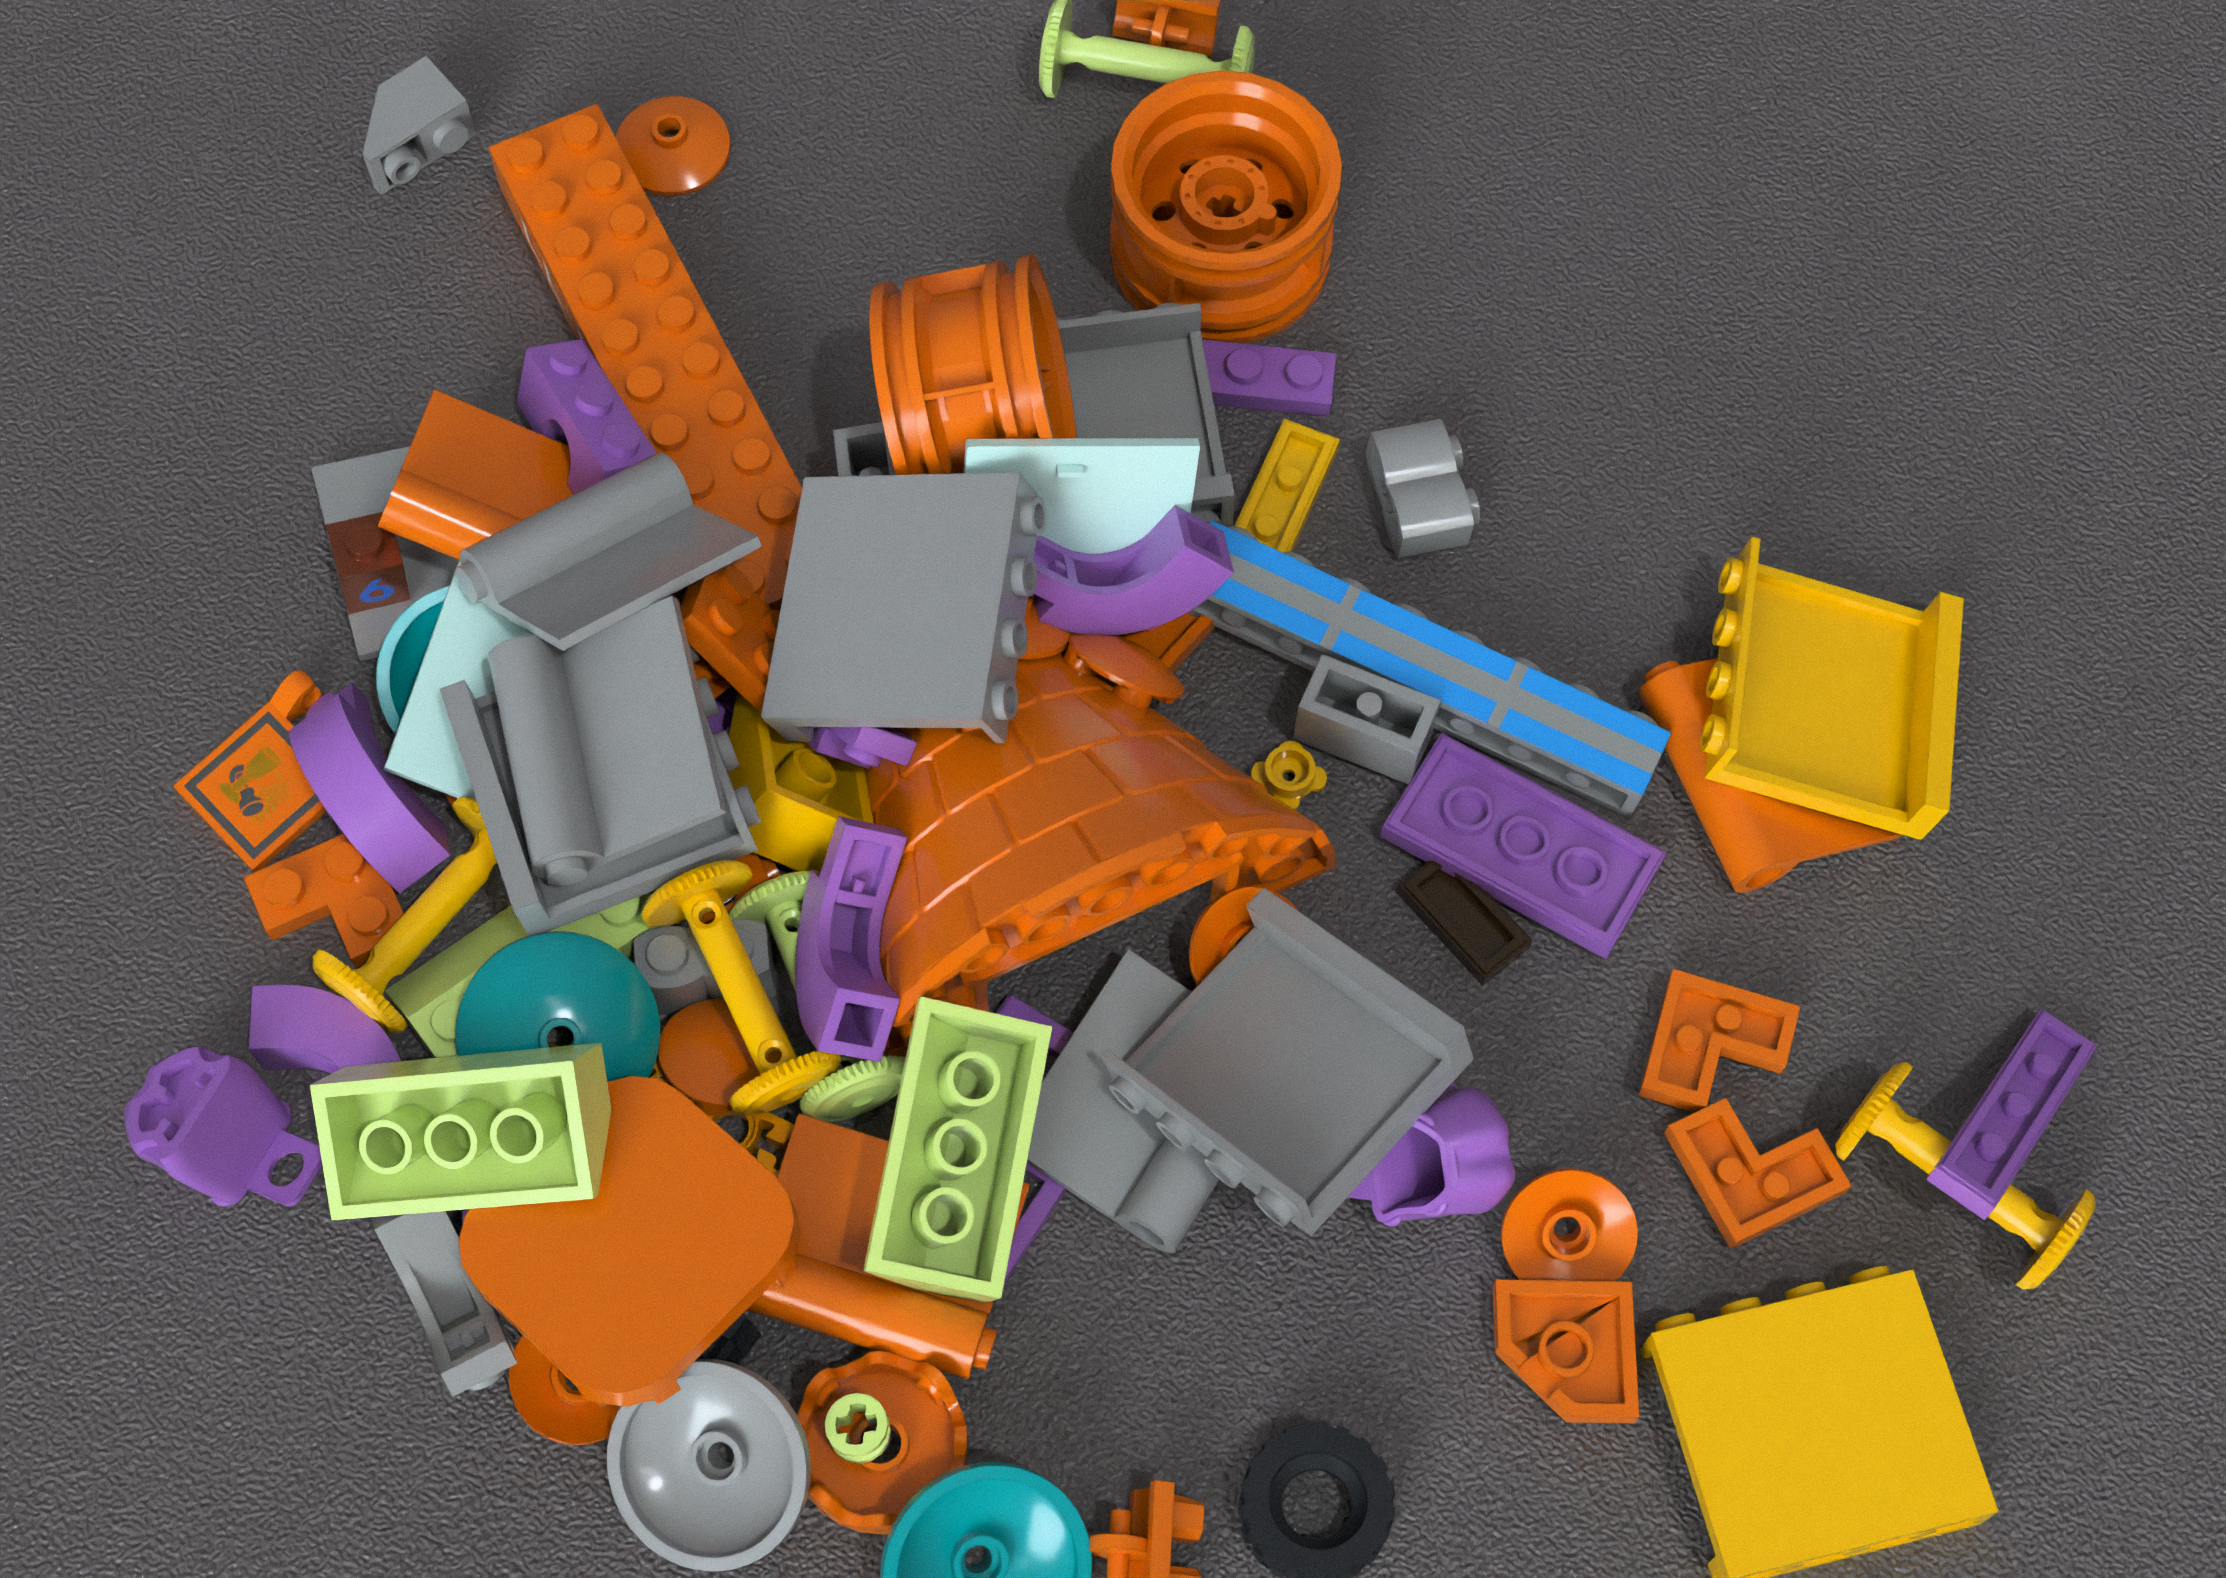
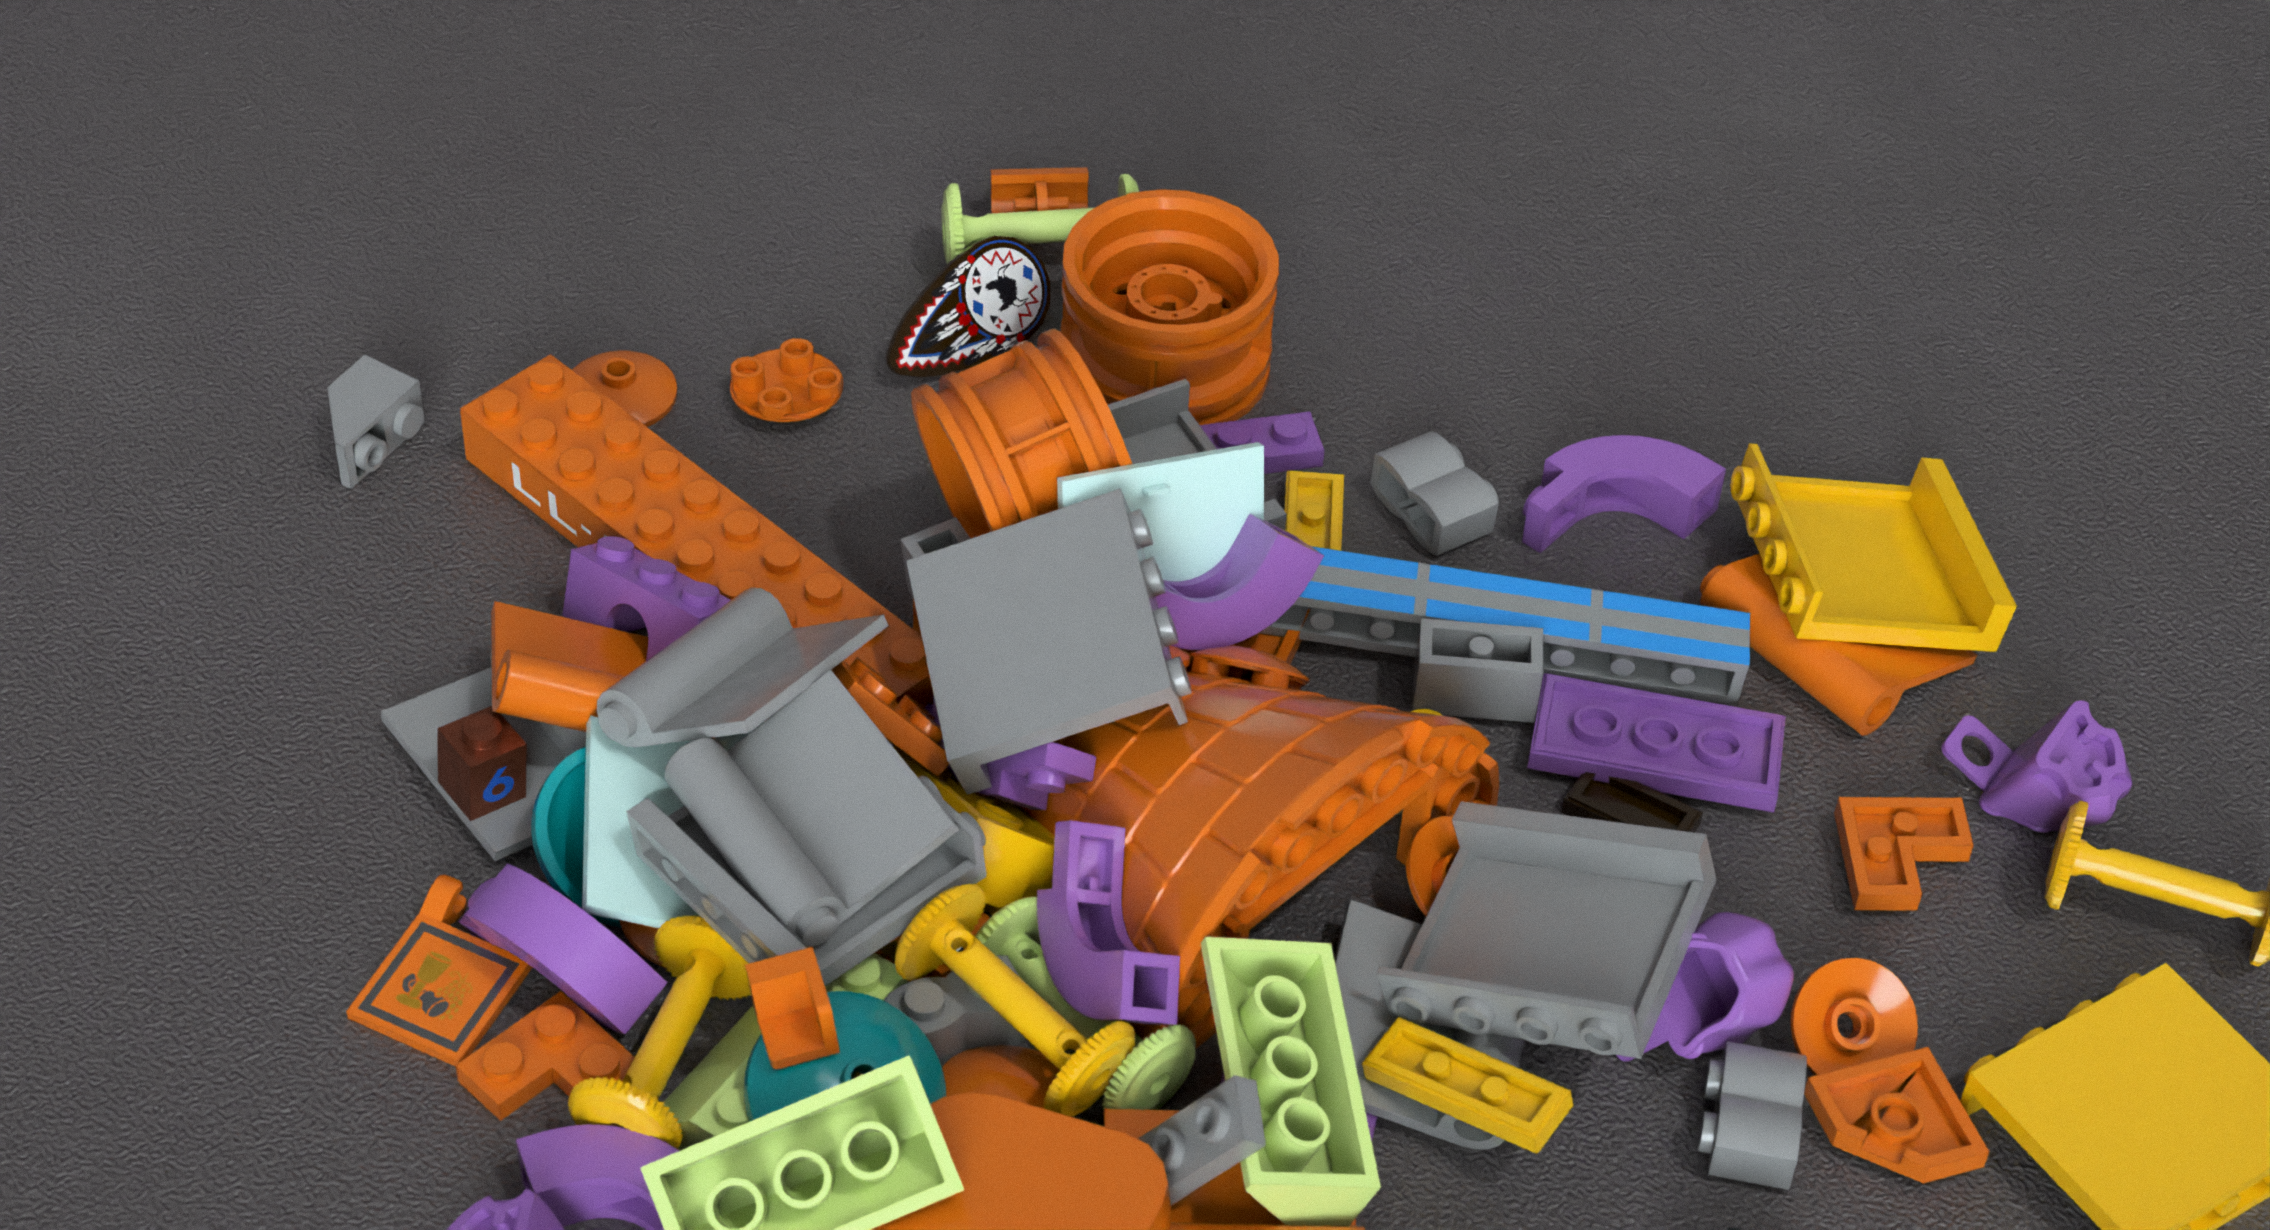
camera: 20 degrees left, 20 degrees down
(514, 955) = (792, 1008): none -> orange panel
(829, 183) = (786, 383): none -> orange dish
(845, 1202) = (1209, 1136): none -> light grey hinge
(1036, 146) = (972, 309): none -> shield
(1146, 1199) = (1468, 1085): none -> yellow tile
(1427, 1301) = (1755, 1114): none -> light grey brick
(1620, 516) = (1624, 475): none -> medium lavender arch
(1751, 1190) = (1983, 953): orange plate -> none
(1907, 1005) = (2049, 772): none -> medium lavender piece
(2011, 1114) = (2184, 826): medium lavender tile -> none

